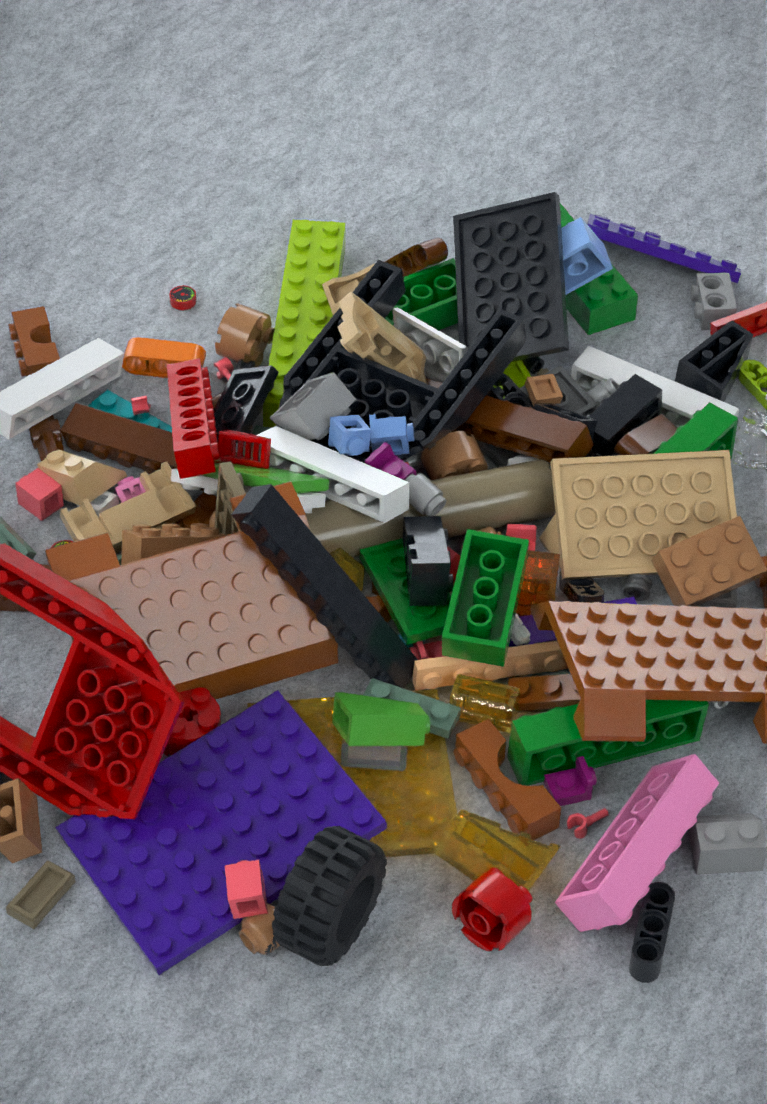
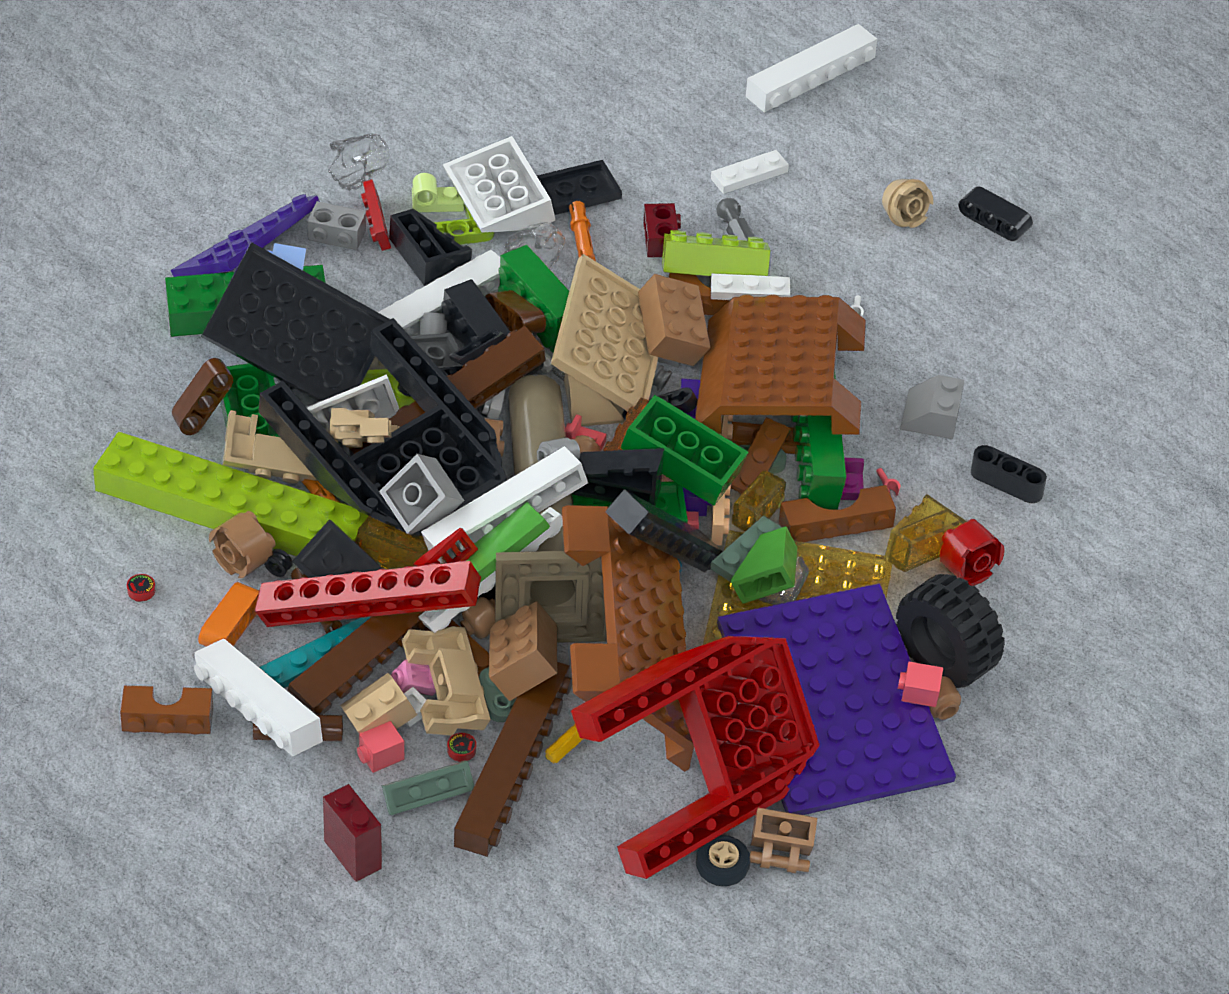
camera: 75 degrees left, 0 degrees up
(40, 894) = (853, 839): dark tan tile -> none
(140, 405) = (299, 645): coral hand -> none
(225, 368) = (260, 576): coral hand -> none
(352, 440) = (478, 474): medium blue brick -> none
(386, 461) = (517, 462): magenta bracket -> none
(393, 431) = (483, 451): medium blue brick -> none
(543, 389) = (437, 351): medium nougat plate -> none
(637, 844) = (937, 449): bright pink brick -> none

